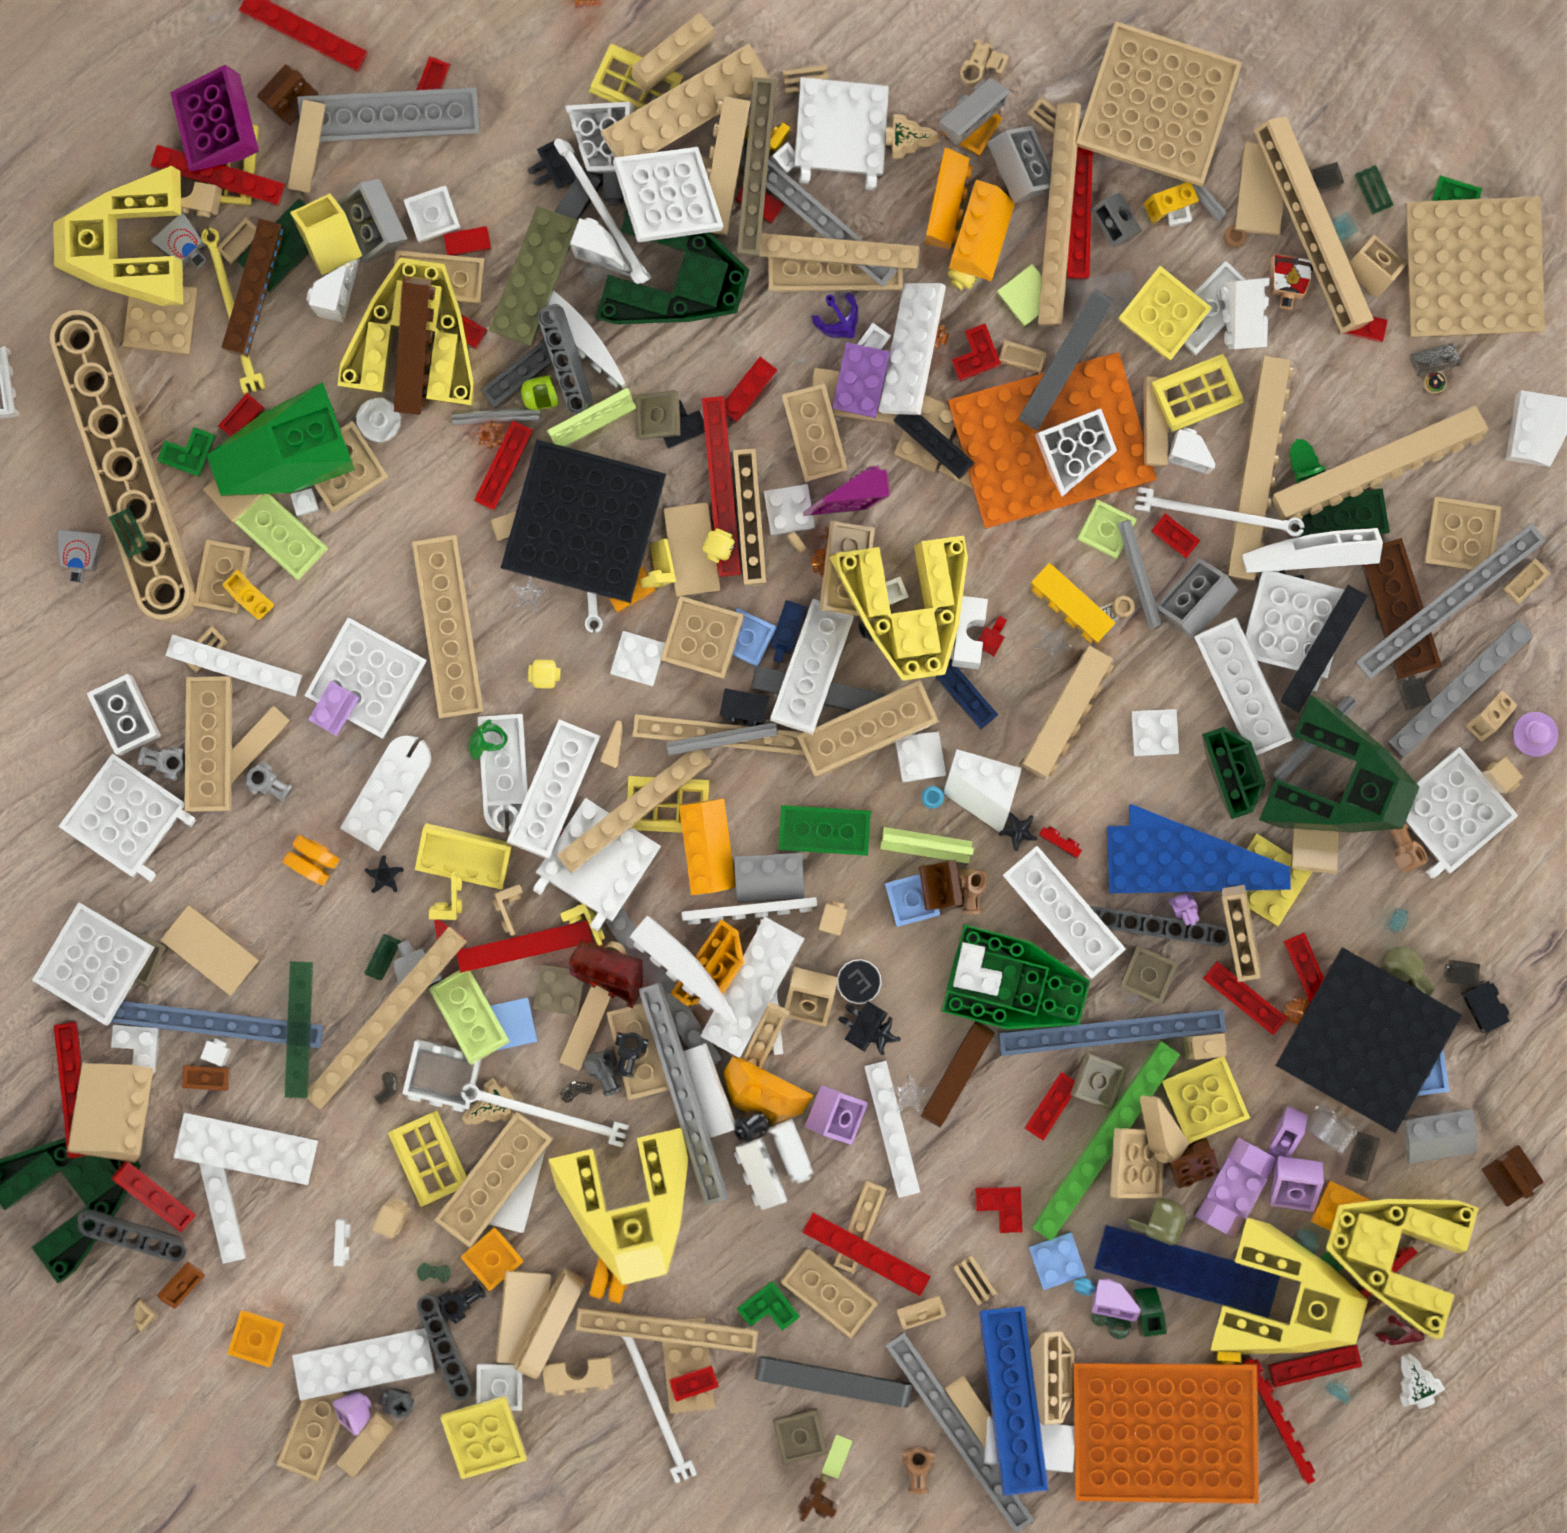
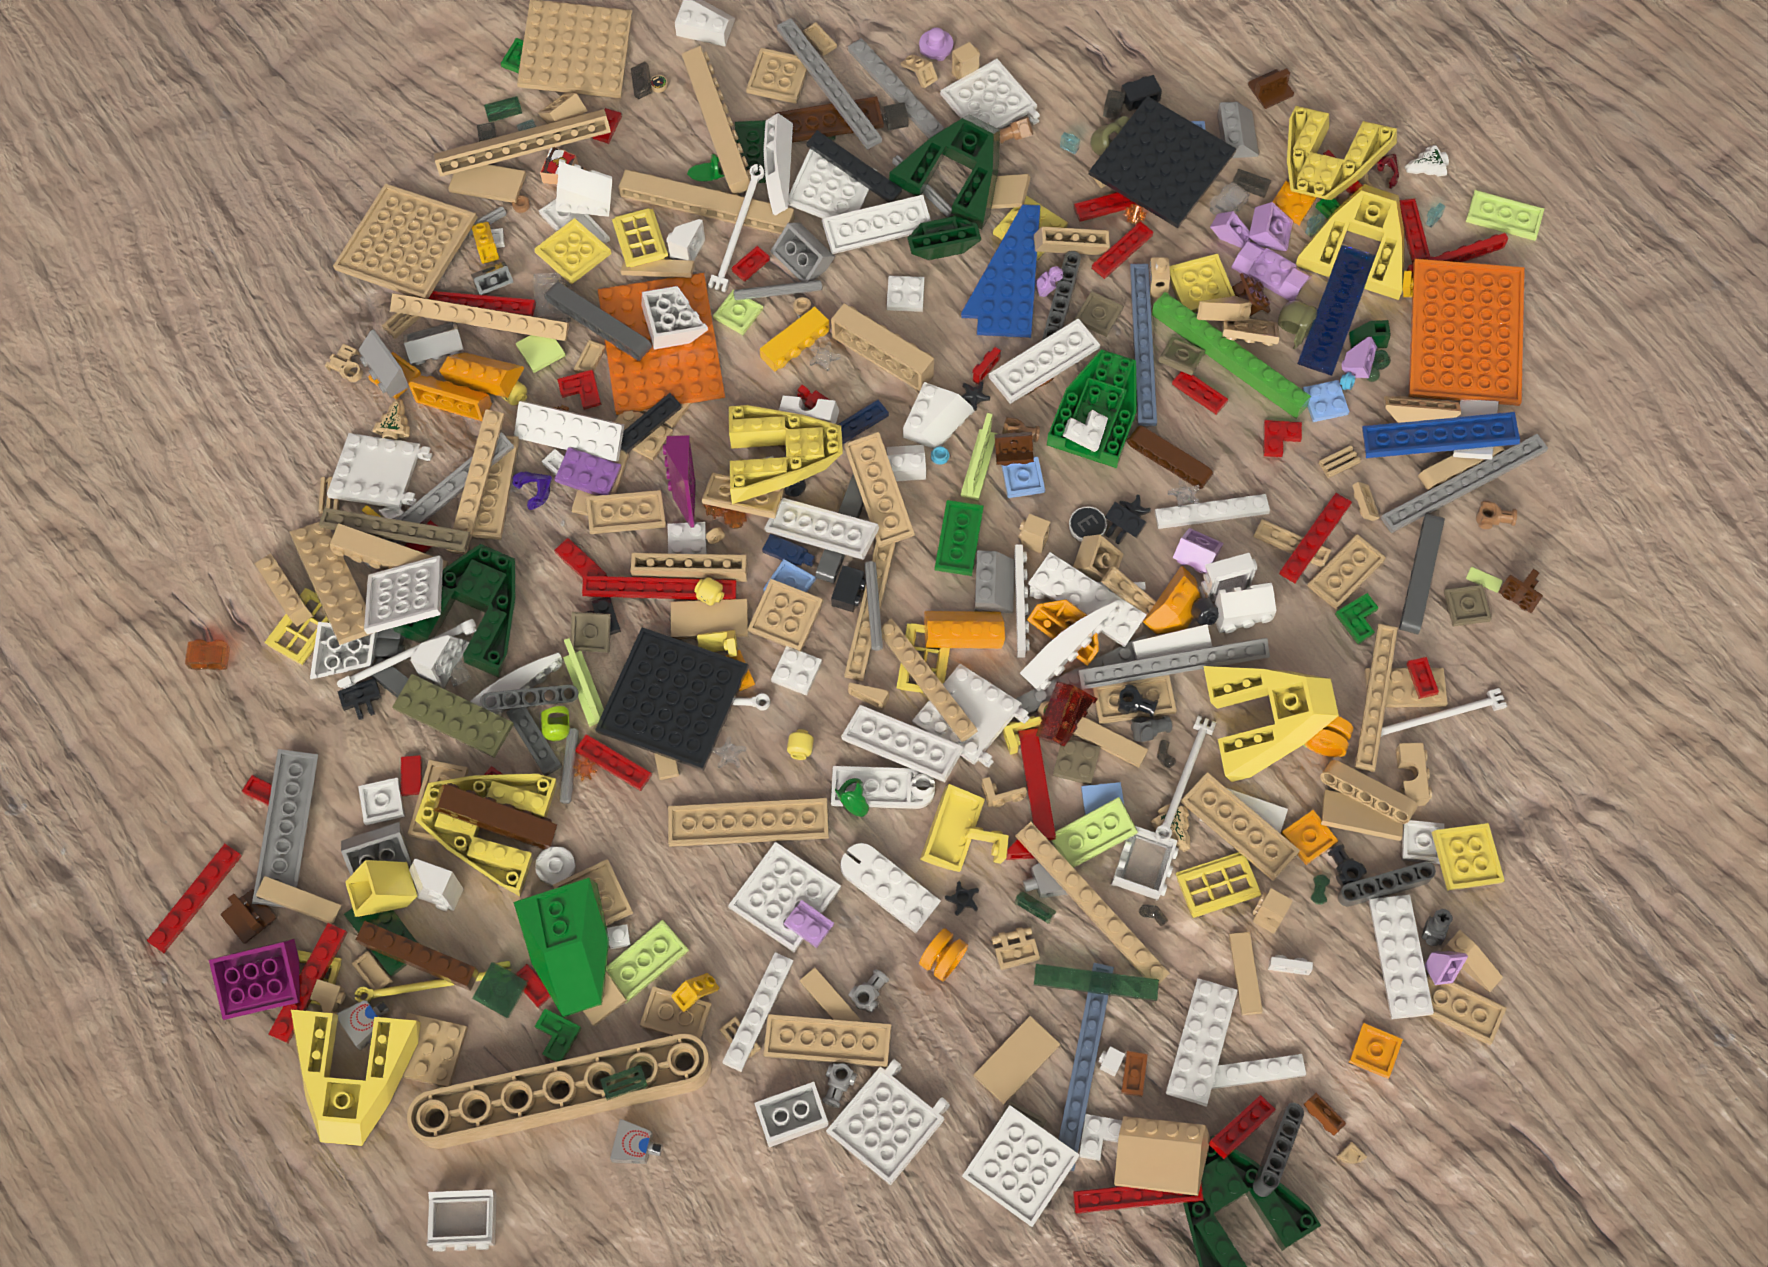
camera: 80 degrees left, 20 degrees down
(230, 383) = (500, 989): none -> clear green plate
(325, 939) = (1018, 953): none -> tan plate
(329, 1193) = (1245, 973): none -> tan tile
(1351, 1482) = (1505, 215): none -> yellowish green tile

